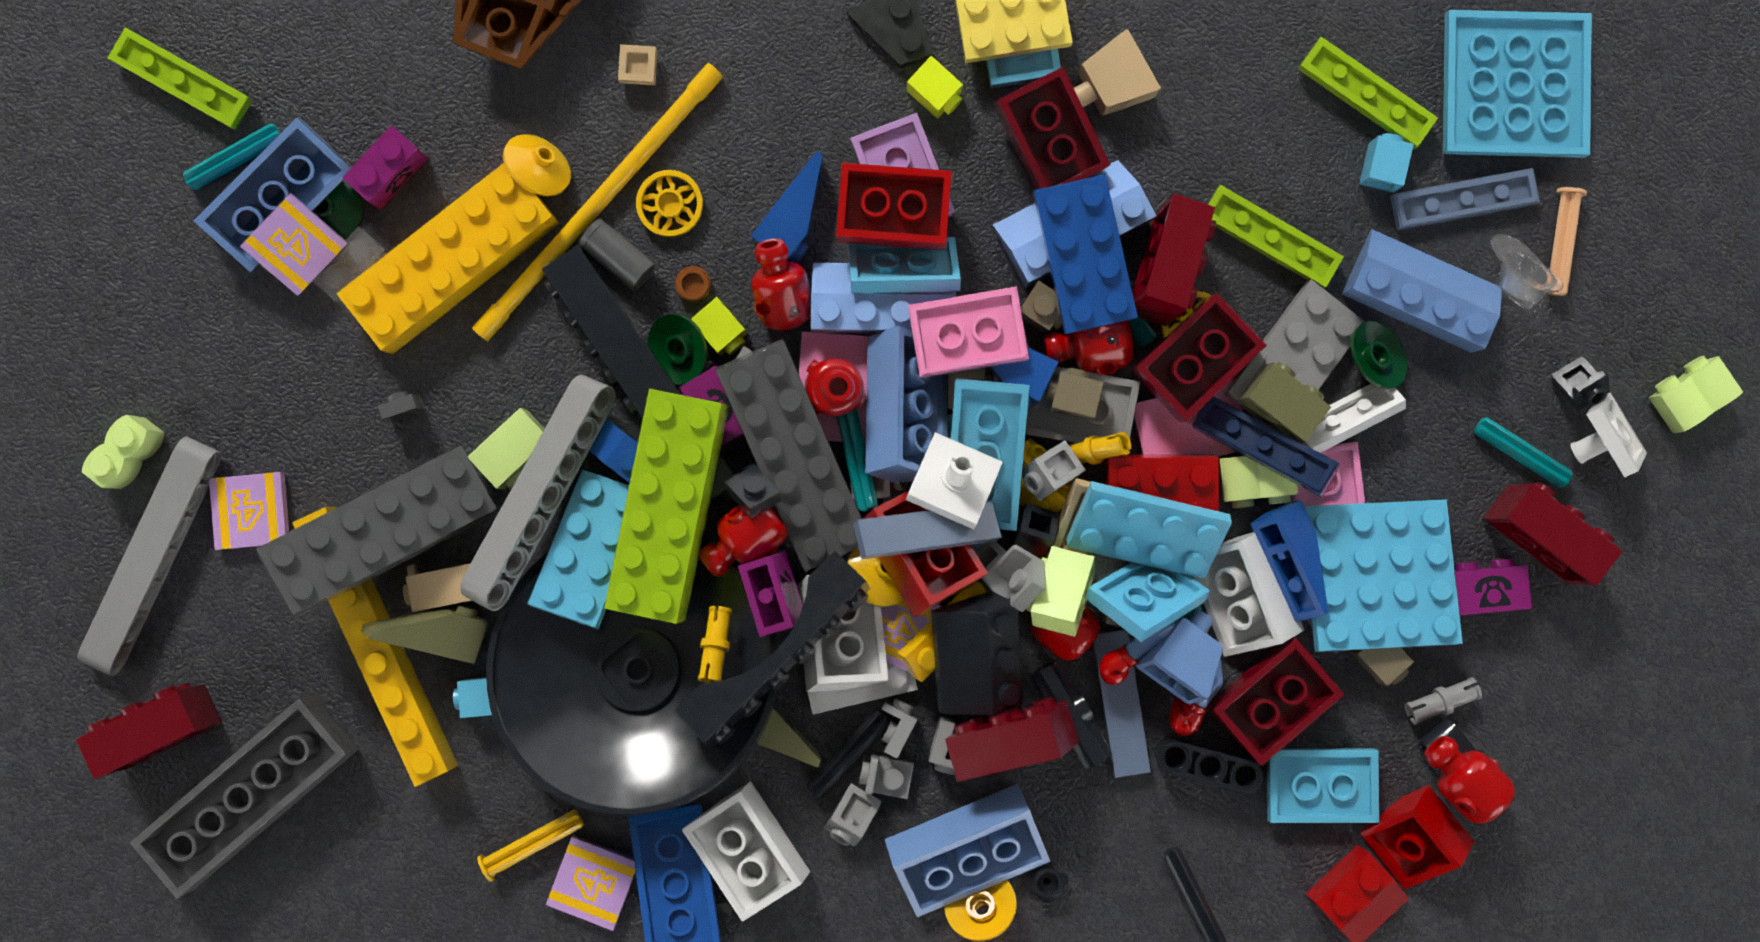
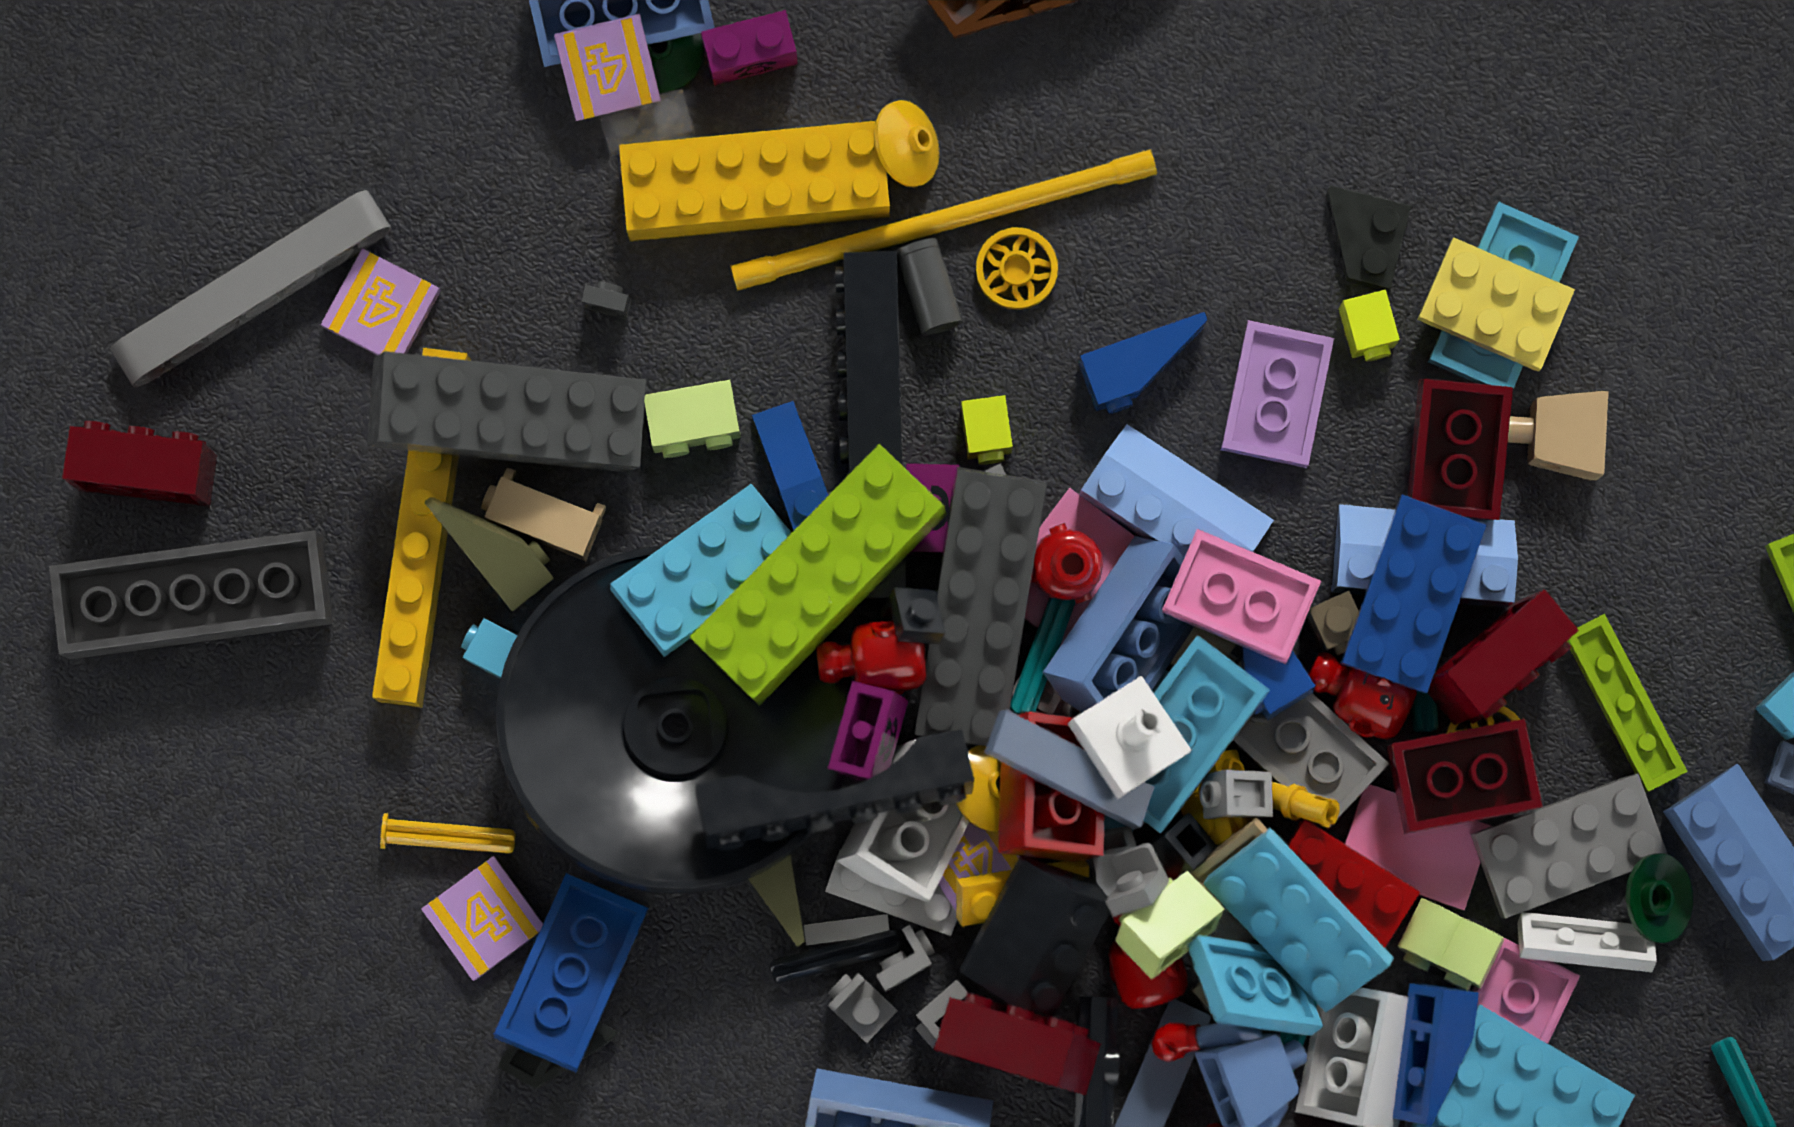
camera: 30 degrees right, 5 degrees down
(124, 449) = (283, 170): yellowish green brick -> none
(537, 492) = (694, 477): light grey beam -> none
(637, 64) = (1075, 106): tan plate -> none
(667, 341) = (920, 410): dark green dish -> none
(693, 284) = (987, 367): dark orange tile -> none
(715, 644) = (777, 746): yellow pin -> none
(746, 851) = (666, 985): white slope -> none
(780, 288) = (1076, 428): red piece -> none
(843, 730) = (845, 929): none -> white sticker
(852, 816) = (797, 1023): light grey bracket -> none
(893, 206) = (1246, 419): red brick -> none
(903, 269) = (1219, 486): medium azure plate -> none
(1075, 394) = (1311, 732): dark tan brick -> none
(1266, 446) = (1477, 912): dark blue tile -> none
(1285, 401) = (1525, 879): olive brick -> none

